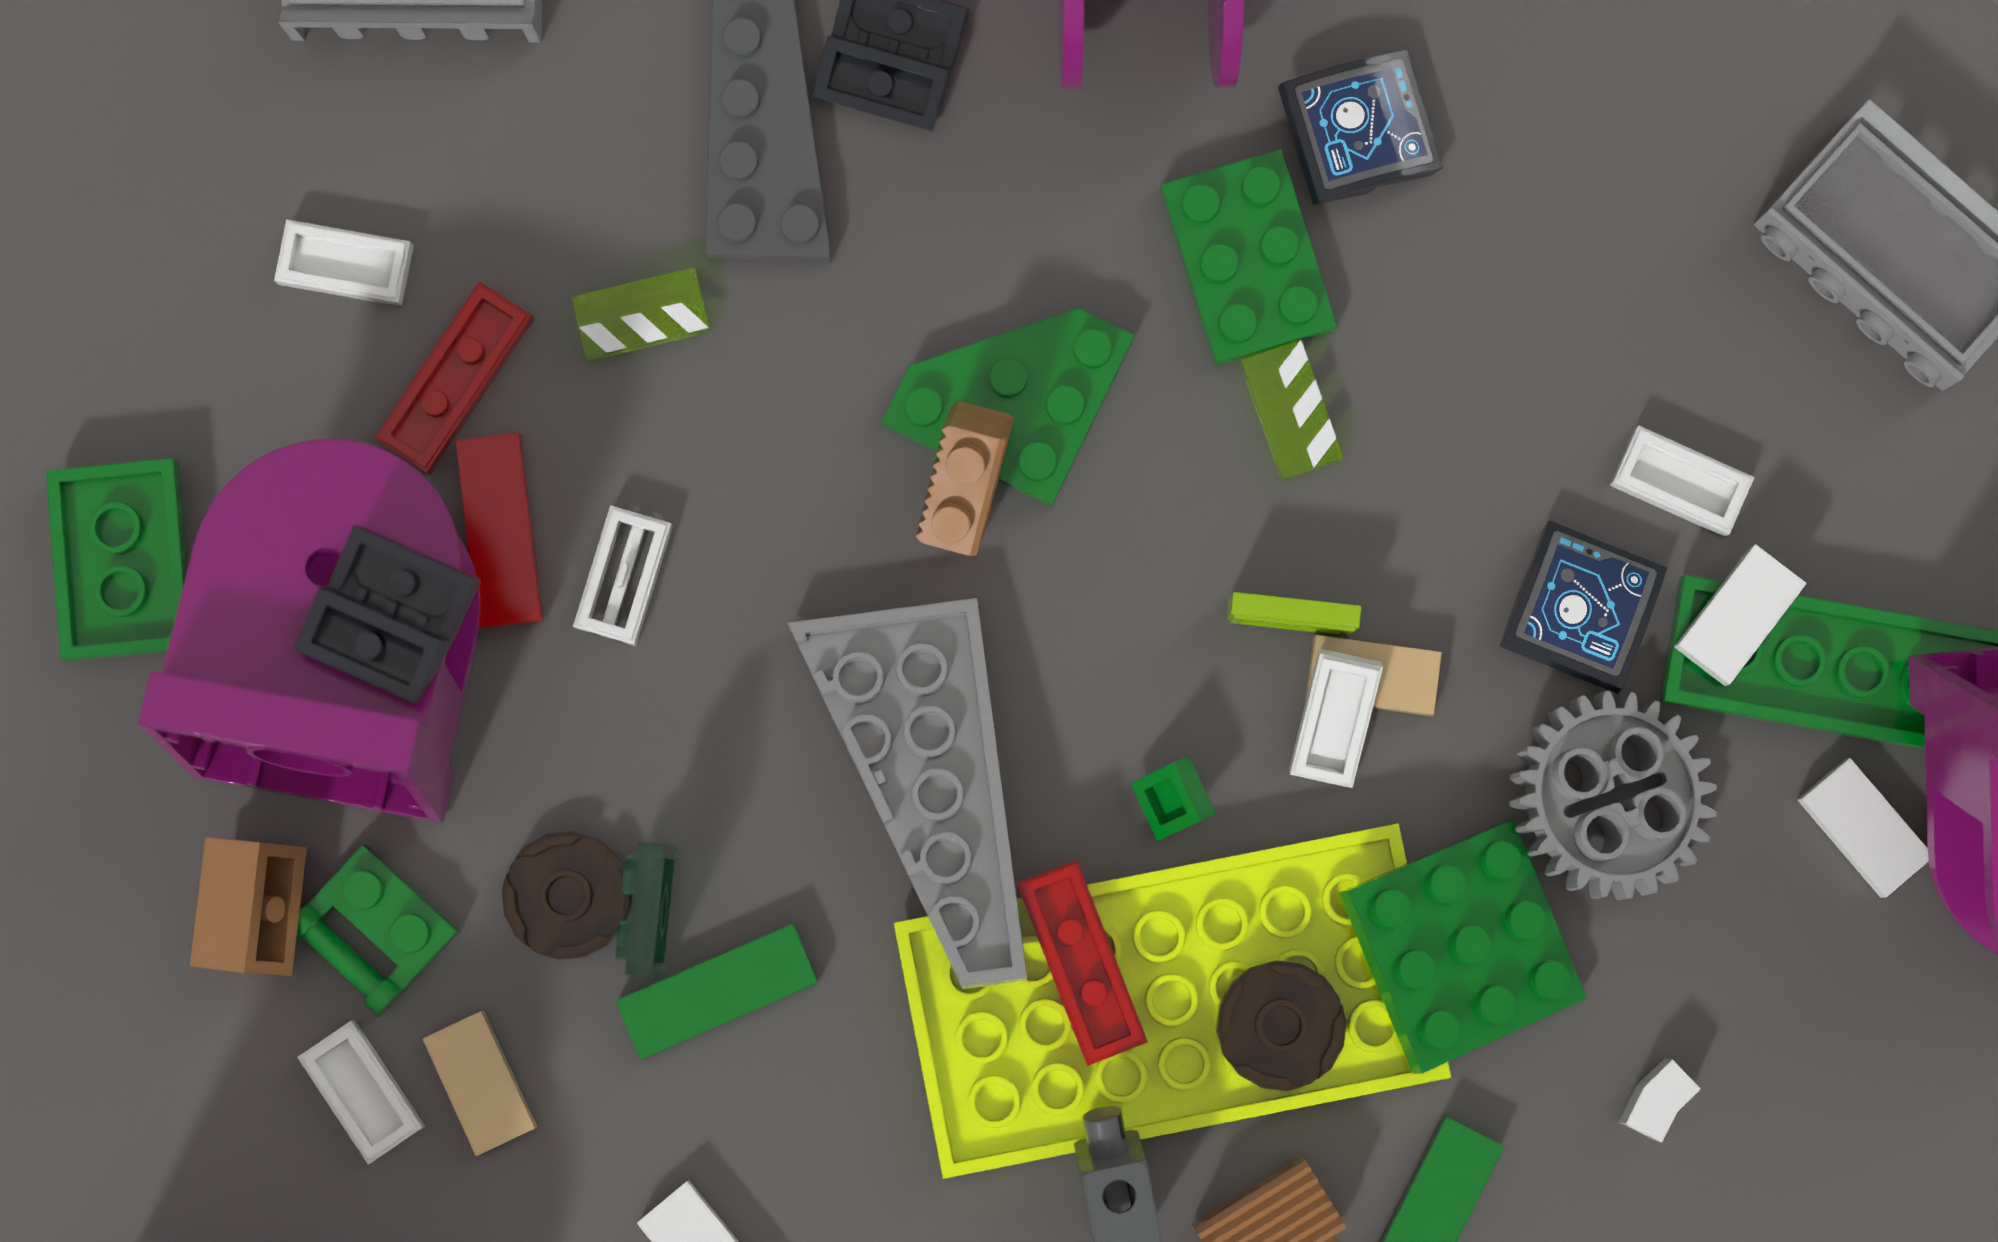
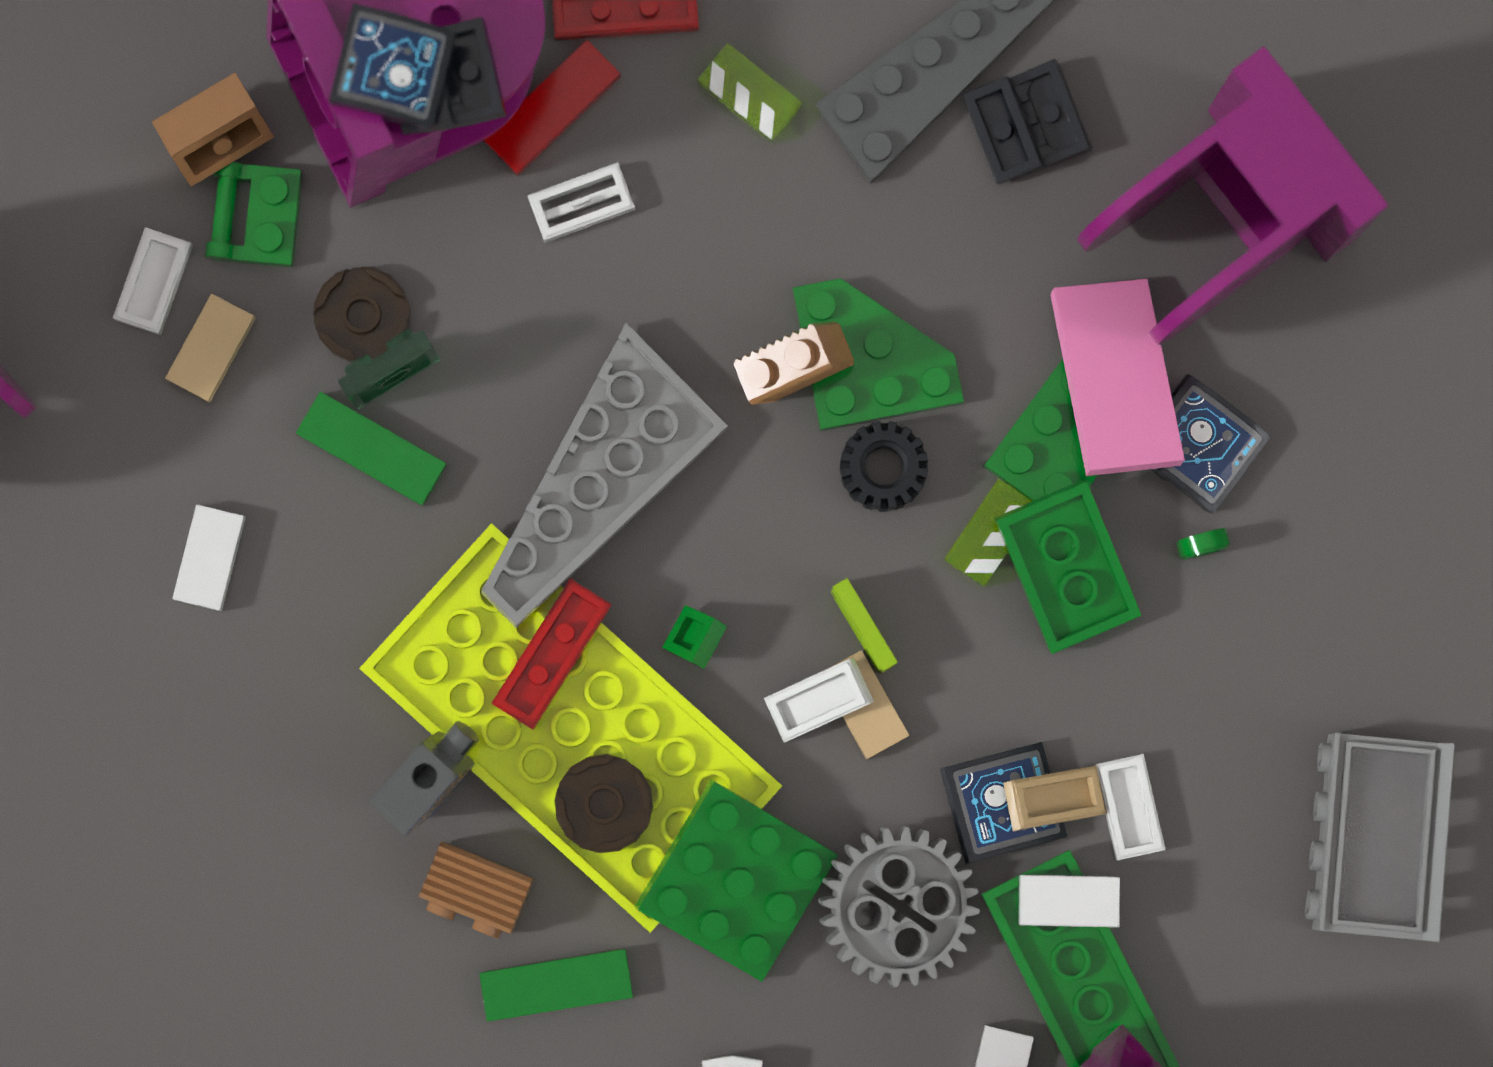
camera: 55 degrees right, 0 degrees up
(336, 660) = (392, 67): none -> slope
(1140, 429) = (888, 436): none -> black tyre
(1230, 158) = (1116, 377): none -> bright pink tile
(1389, 356) = (1067, 566): none -> green plate
(1466, 202) = (1203, 544): none -> green tile
(1620, 550) = (1054, 798): none -> tan tile

